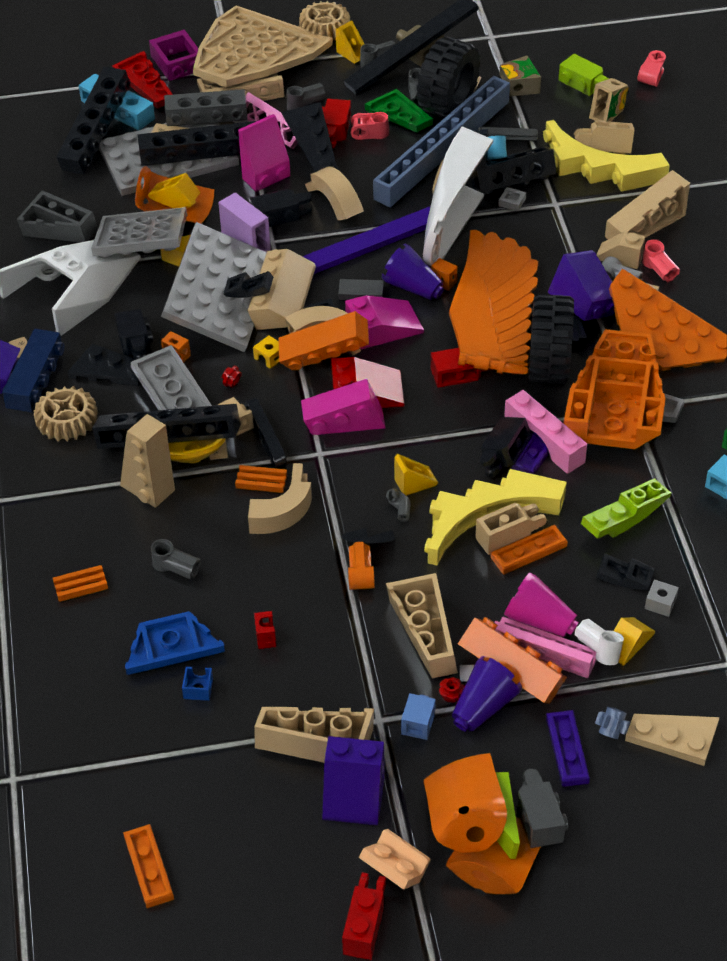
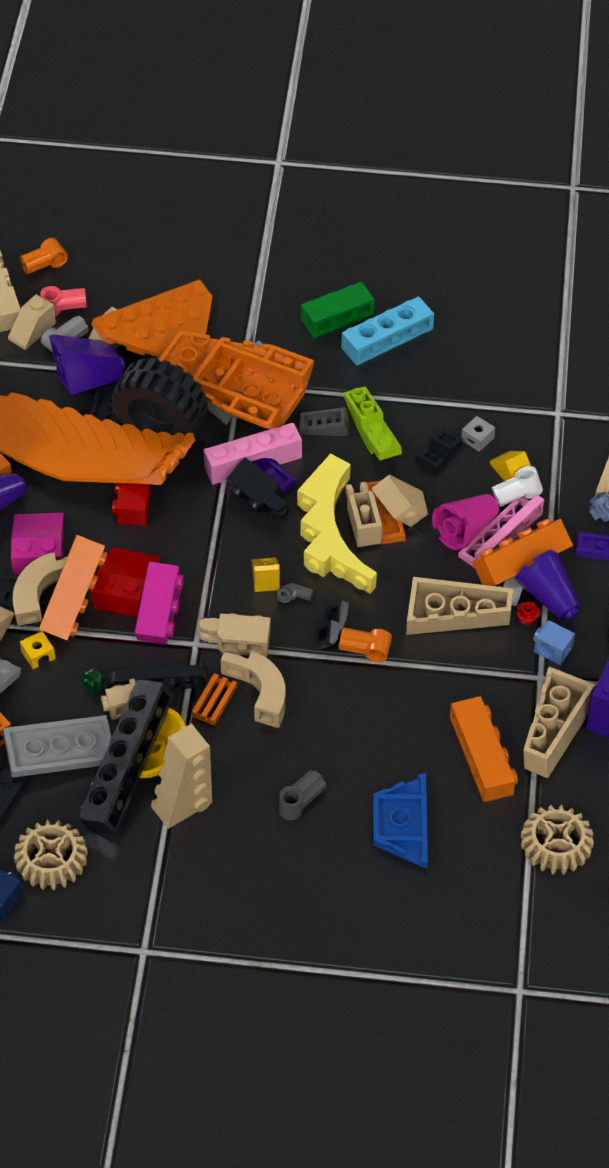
camera: 75 degrees left, 5 degrees up
(79, 580) = (294, 867): orange tile -> none
(184, 776) = (558, 849): none -> tan gear
(191, 680) = (459, 802): blue piece -> none
(231, 376) = (61, 690): red plate -> none
(248, 391) = (92, 680): none -> dark green plate
(264, 631) = (415, 742): red piece -> none
(268, 684) = (482, 749): none -> orange brick
(335, 476) = (237, 633): none -> tan hinge
(534, 549) = (401, 500): none -> tan slope
(615, 480) = (338, 427): none -> dark grey slope
(708, 239) = (48, 254): none -> orange piece

